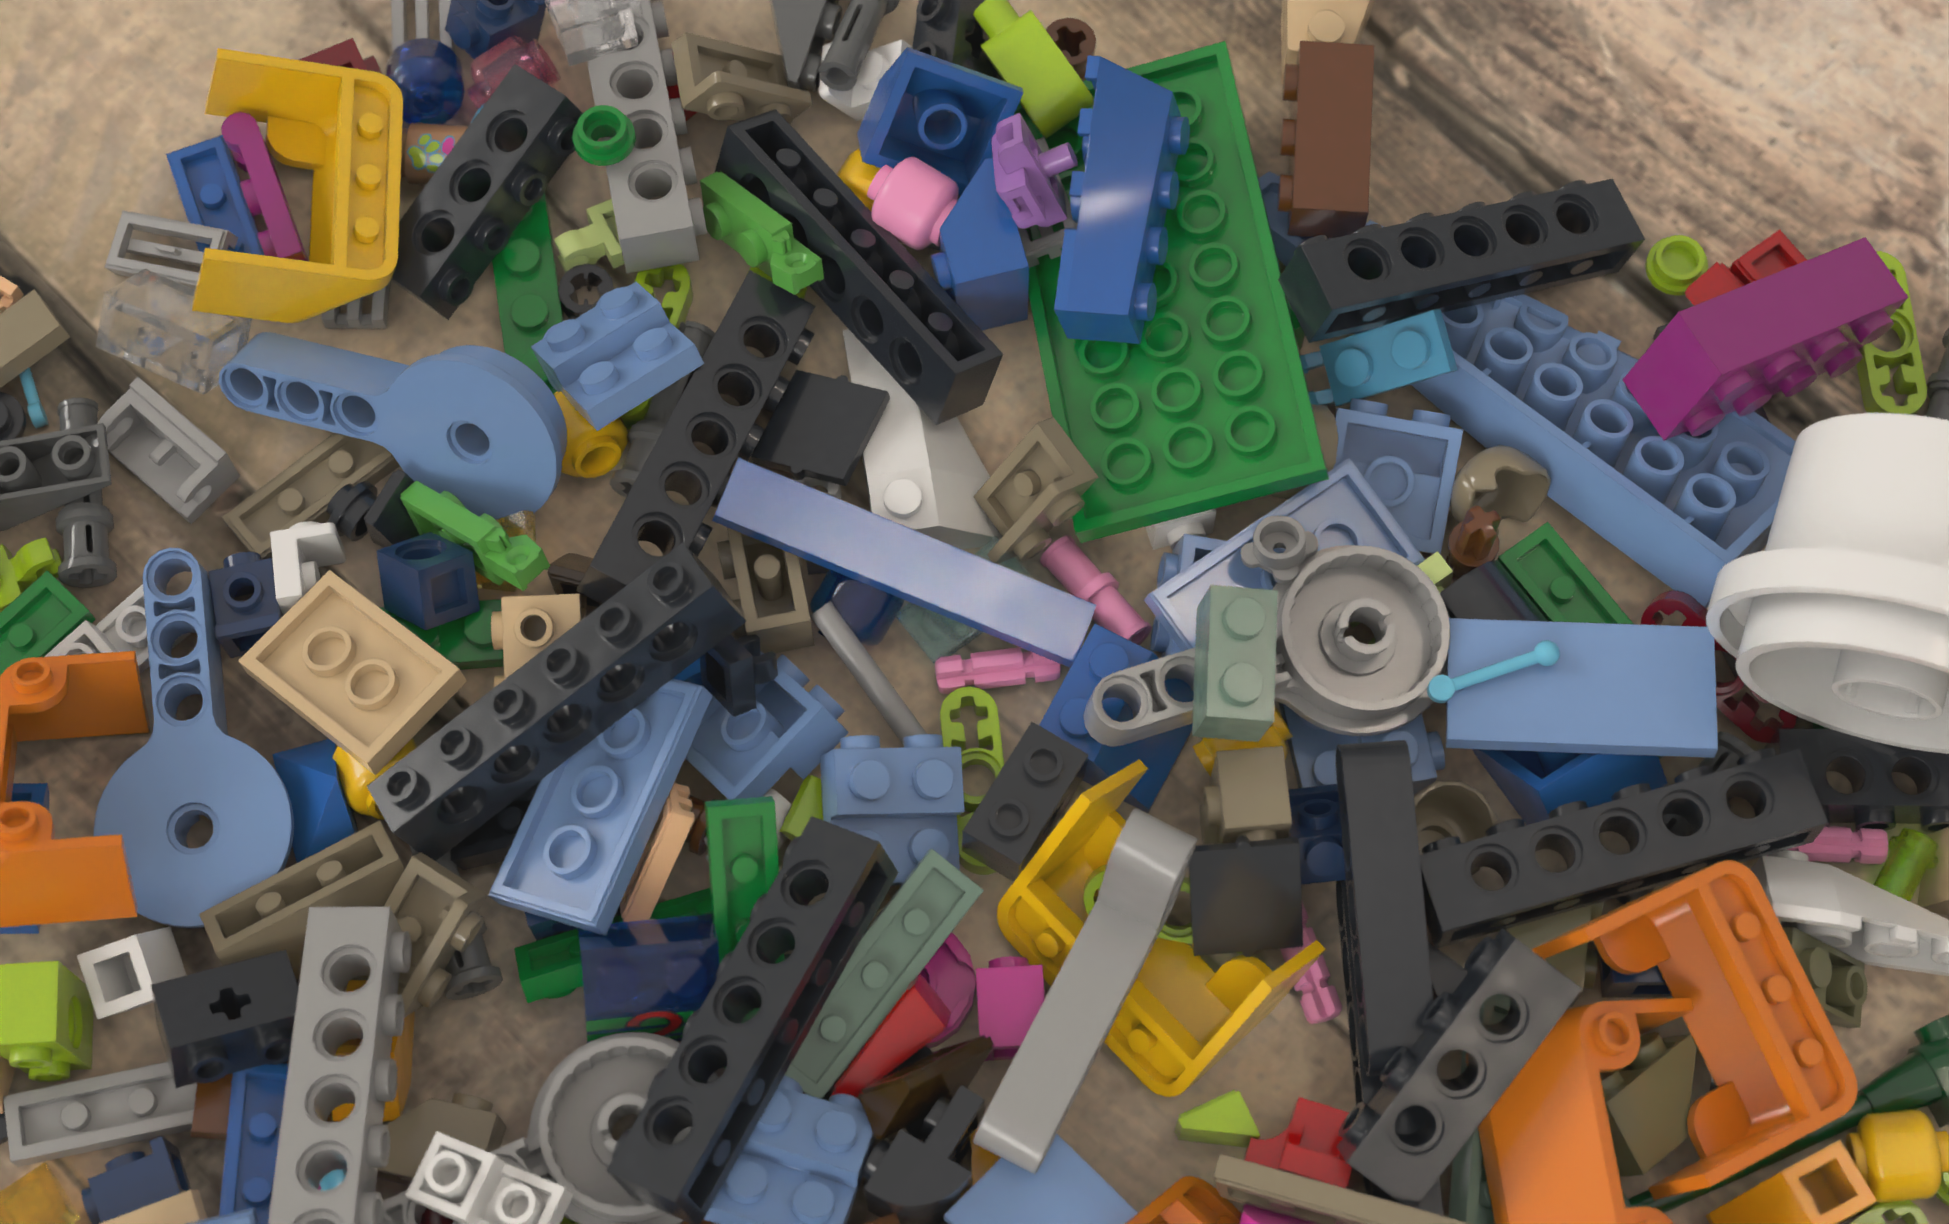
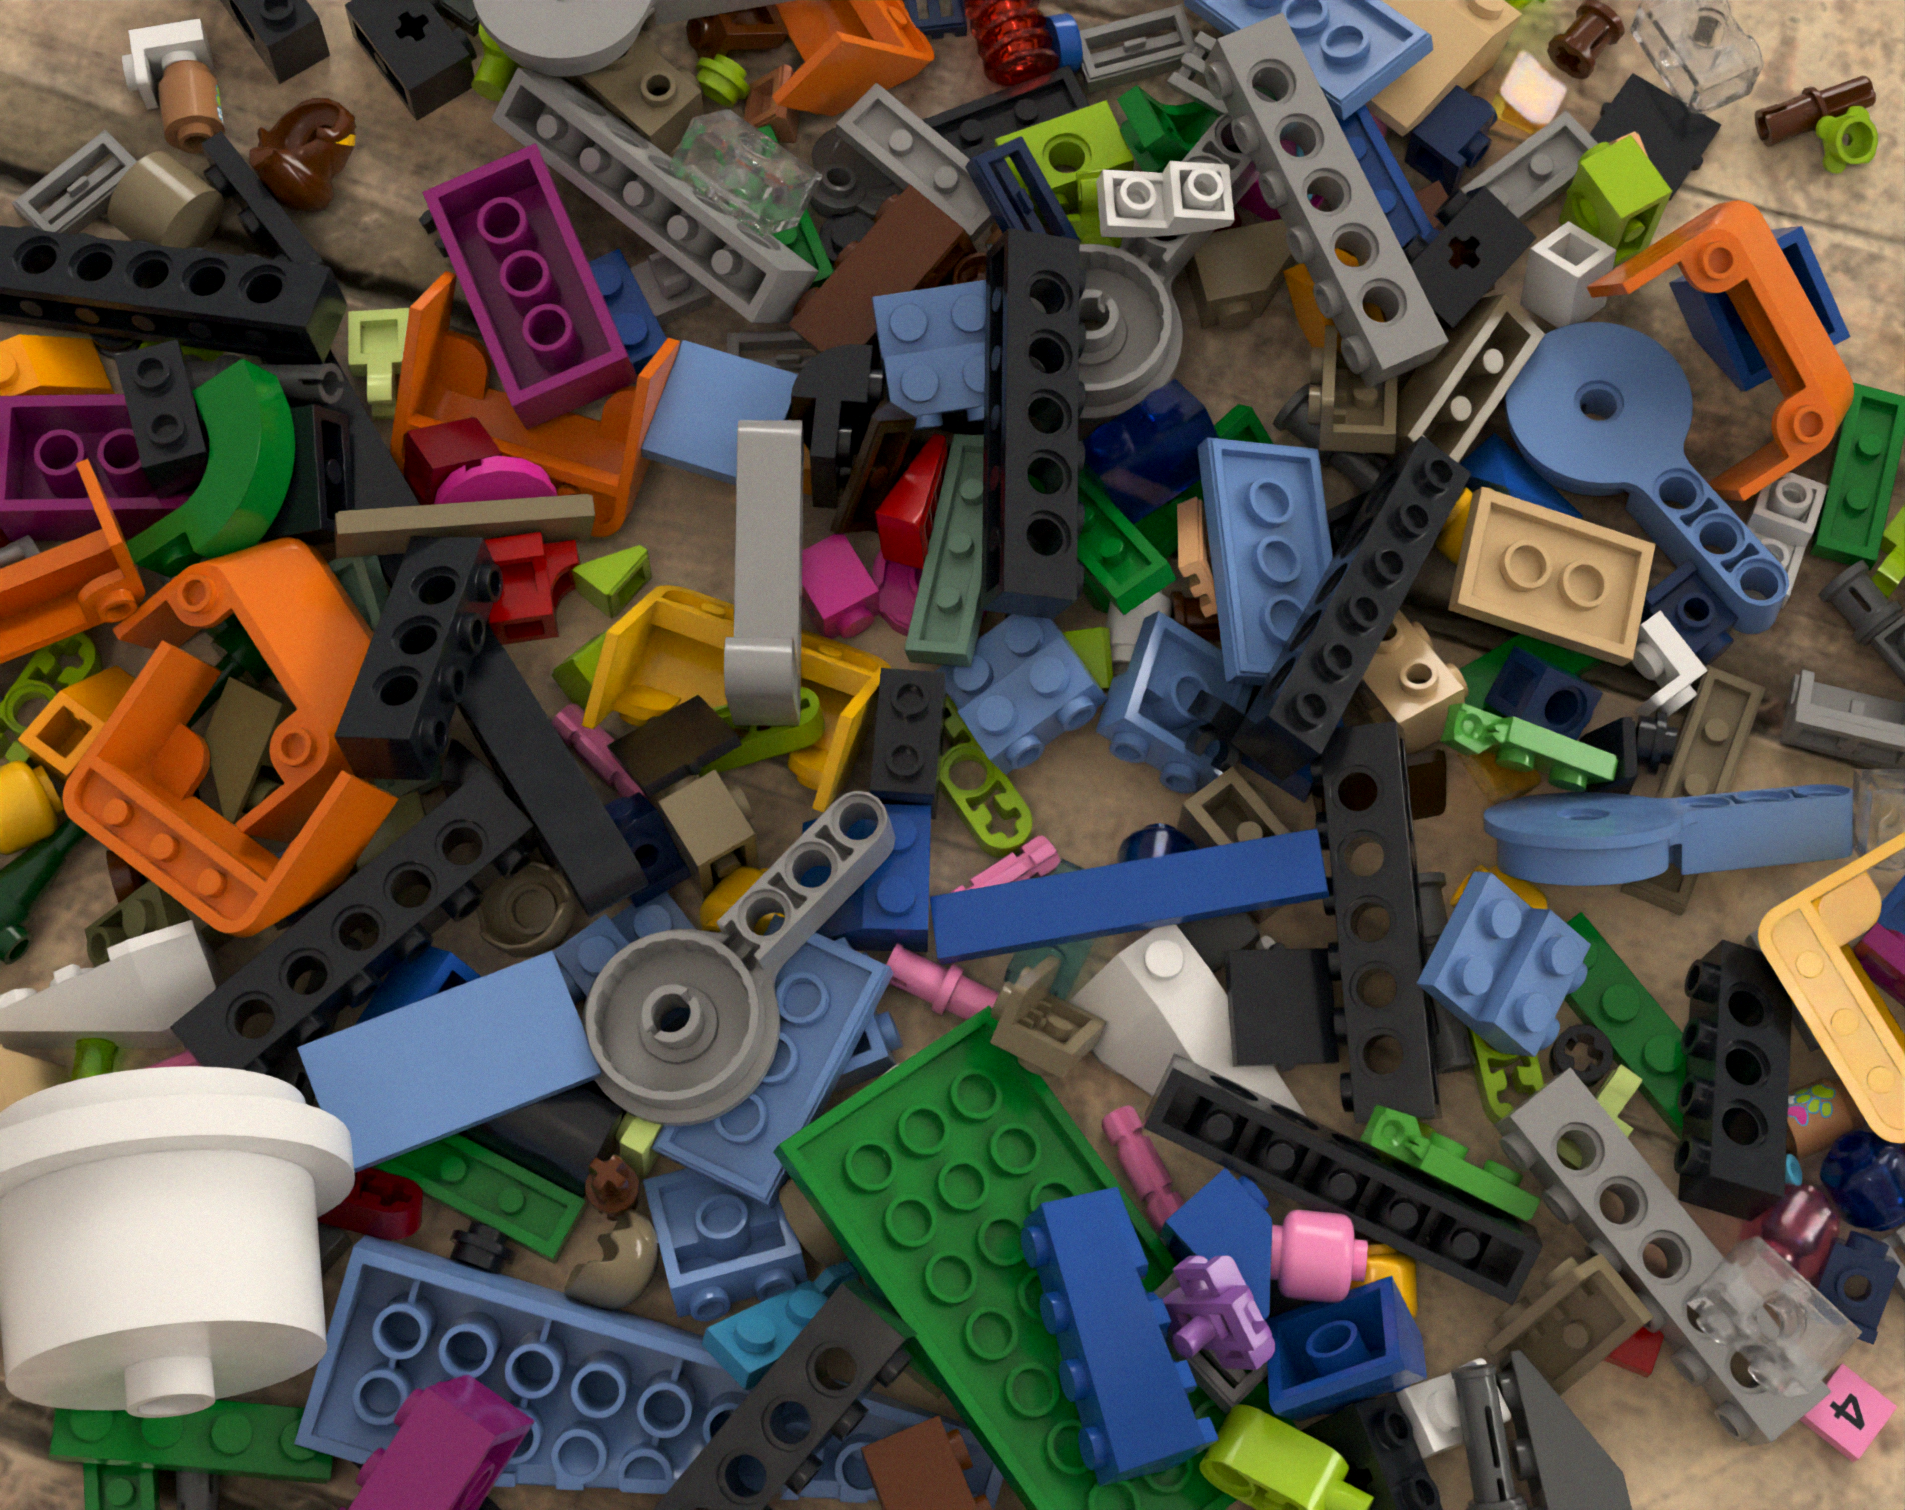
camera: 150 degrees right, 0 degrees up
(599, 123) = (1668, 1157): green plate -> none
(866, 672) = (1099, 802): light grey bar -> none
(1005, 390) = (1142, 1164): none -> bright pink axle
(1235, 663) = (769, 881): sand green brick -> none
(1279, 533) = (805, 1051): light grey plate -> none
(1279, 1045) = (578, 671): none -> lime slope
(1442, 687) = (576, 993): medium azure hinge -> none
(1607, 559) = (482, 1248): none -> black plate

